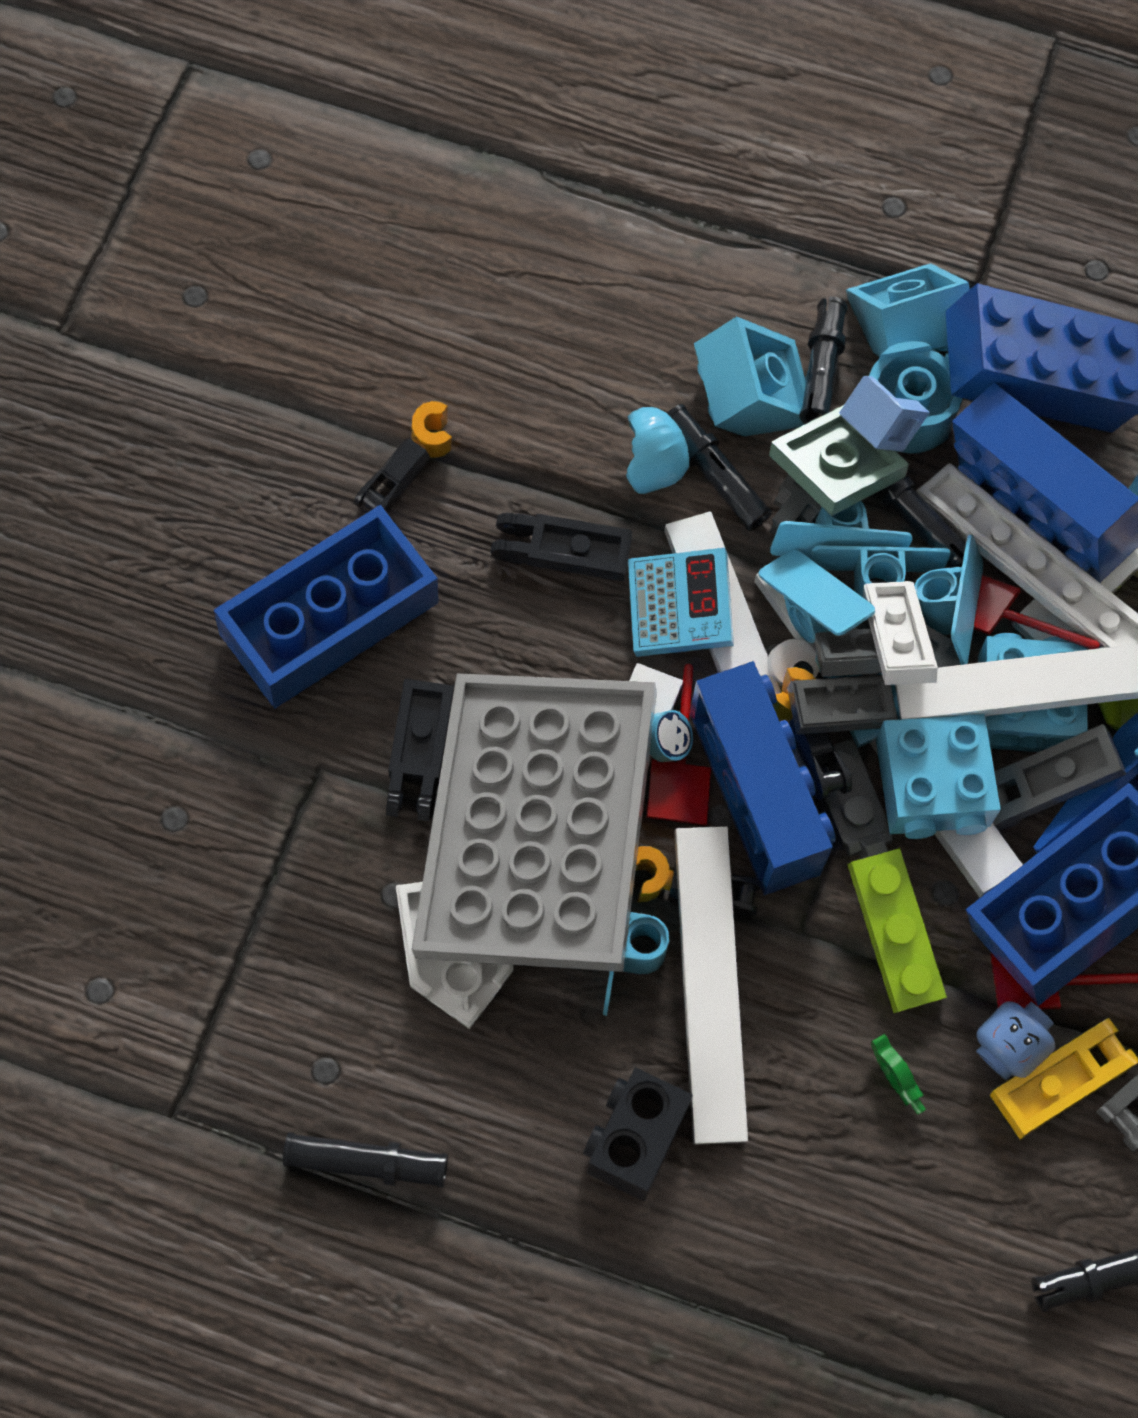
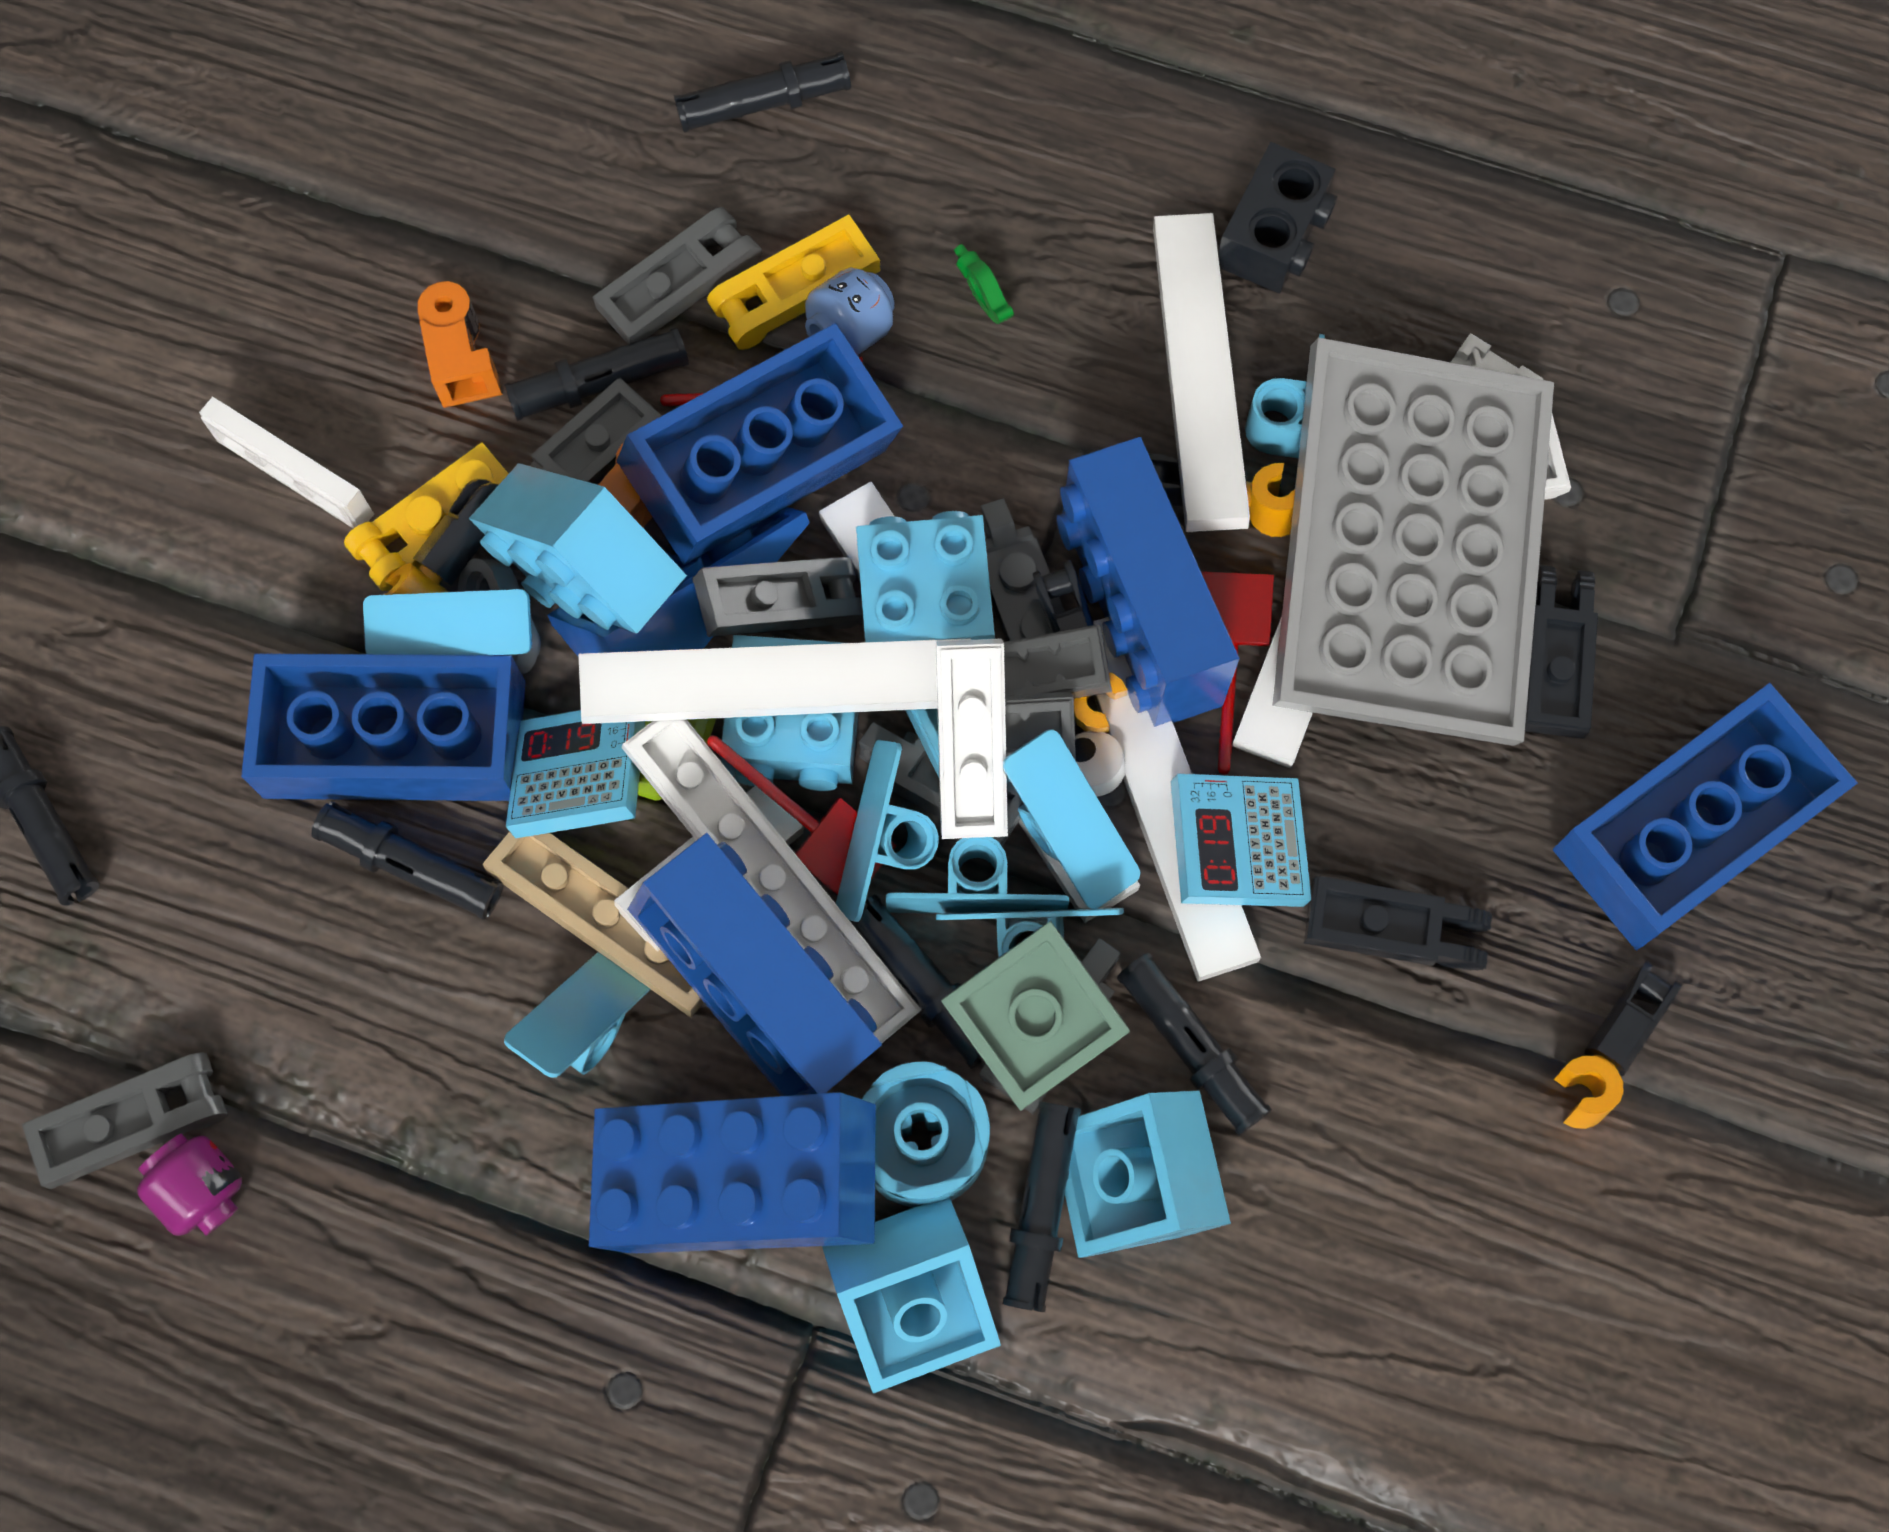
camera: 175 degrees left, 5 degrees up
(365, 1159) = (1551, 194): black pin -> none
(657, 449) = (1283, 1046): medium azure hair -> none
(670, 736) = (1258, 657): tile -> none
(881, 417) = (983, 1053): light blue panel -> none
(896, 930) = (979, 434): lime plate -> none

